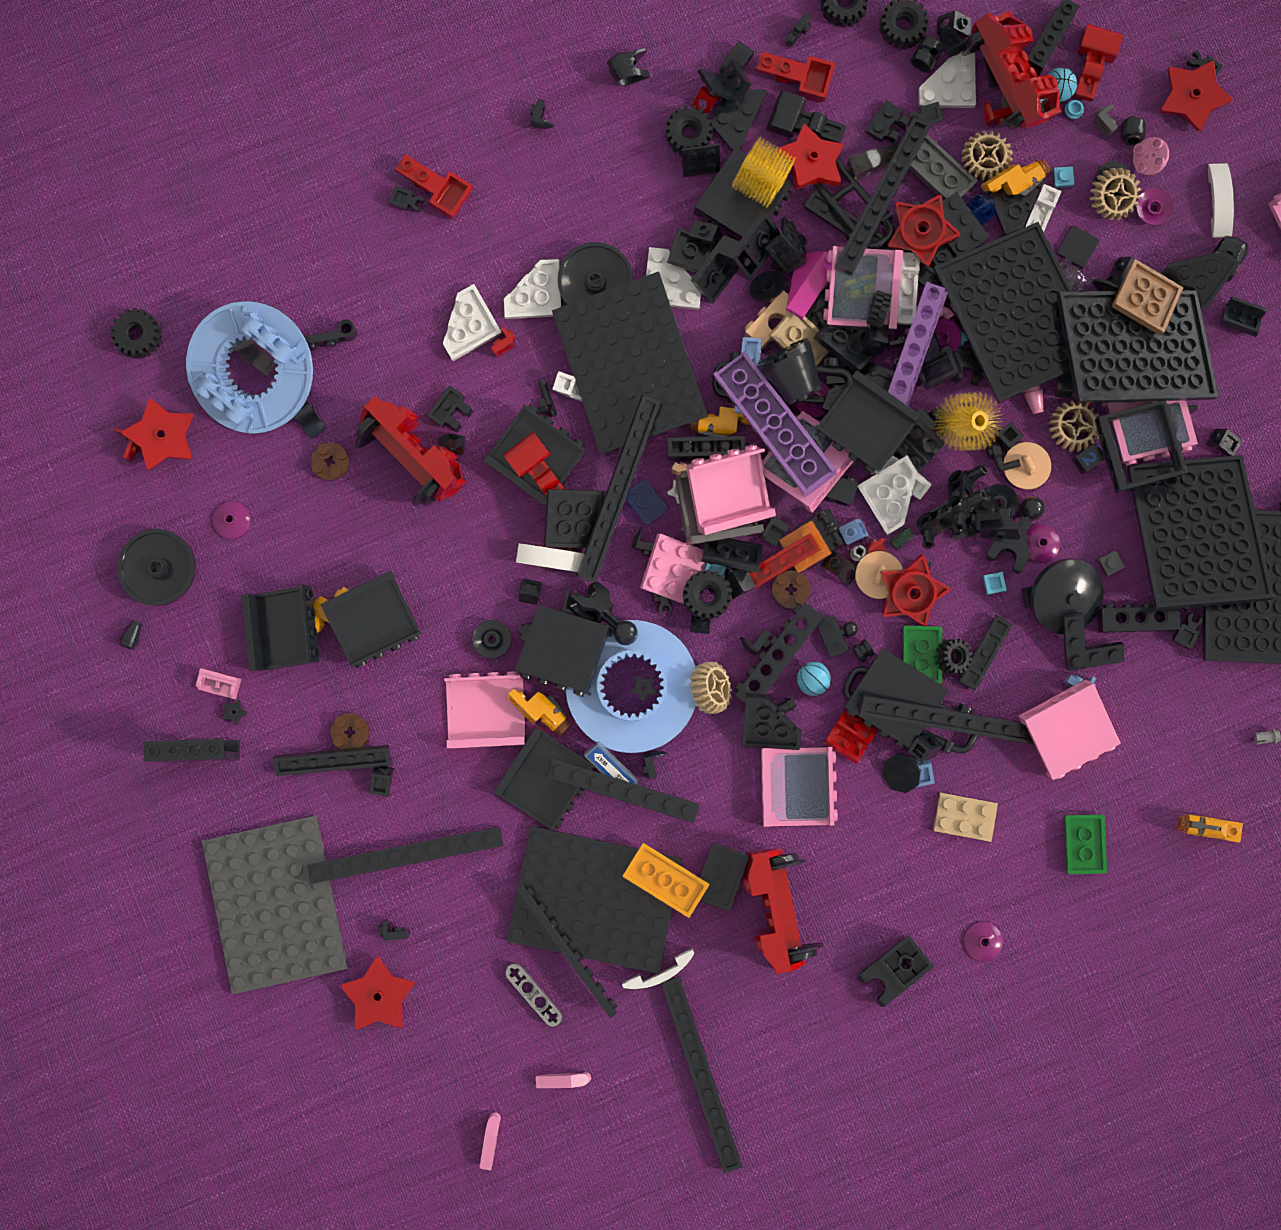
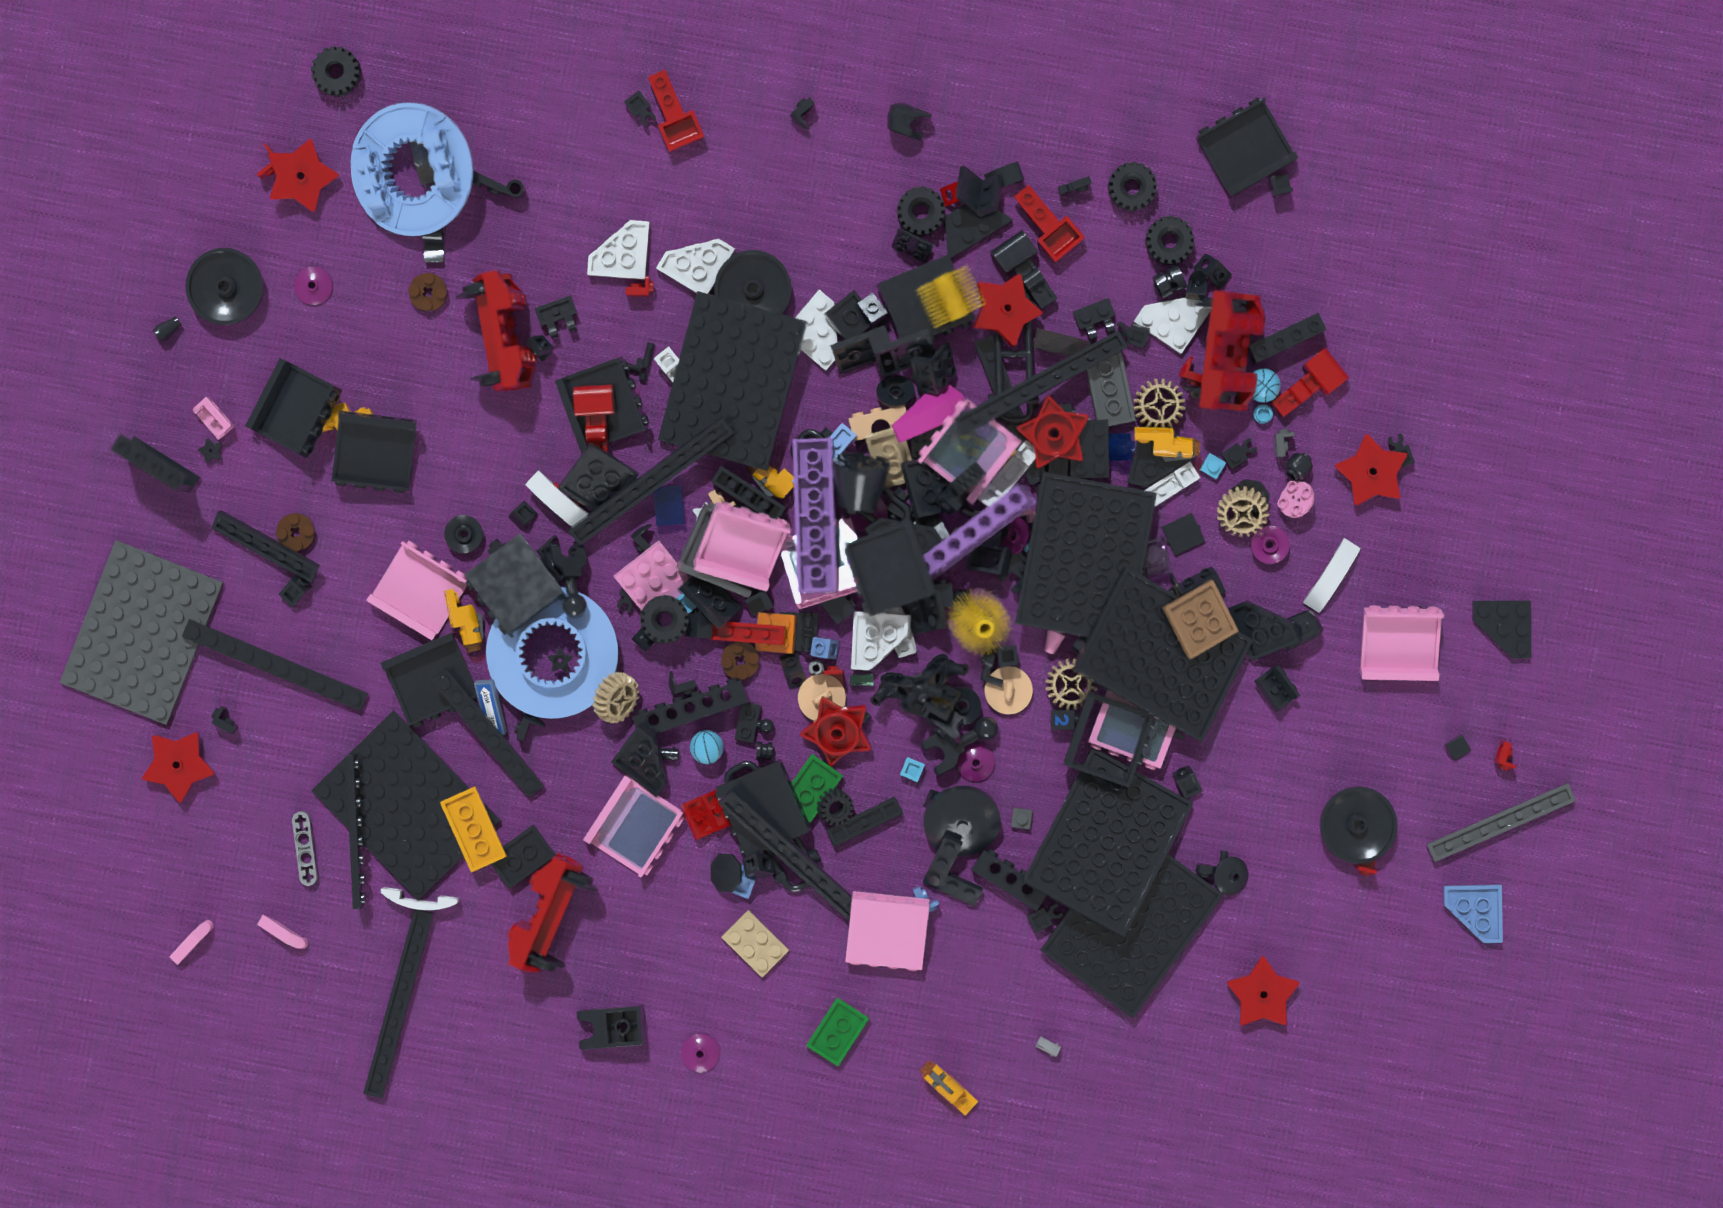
camera: 30 degrees right, 5 degrees up
(1076, 155) = (1236, 455): none -> black plate

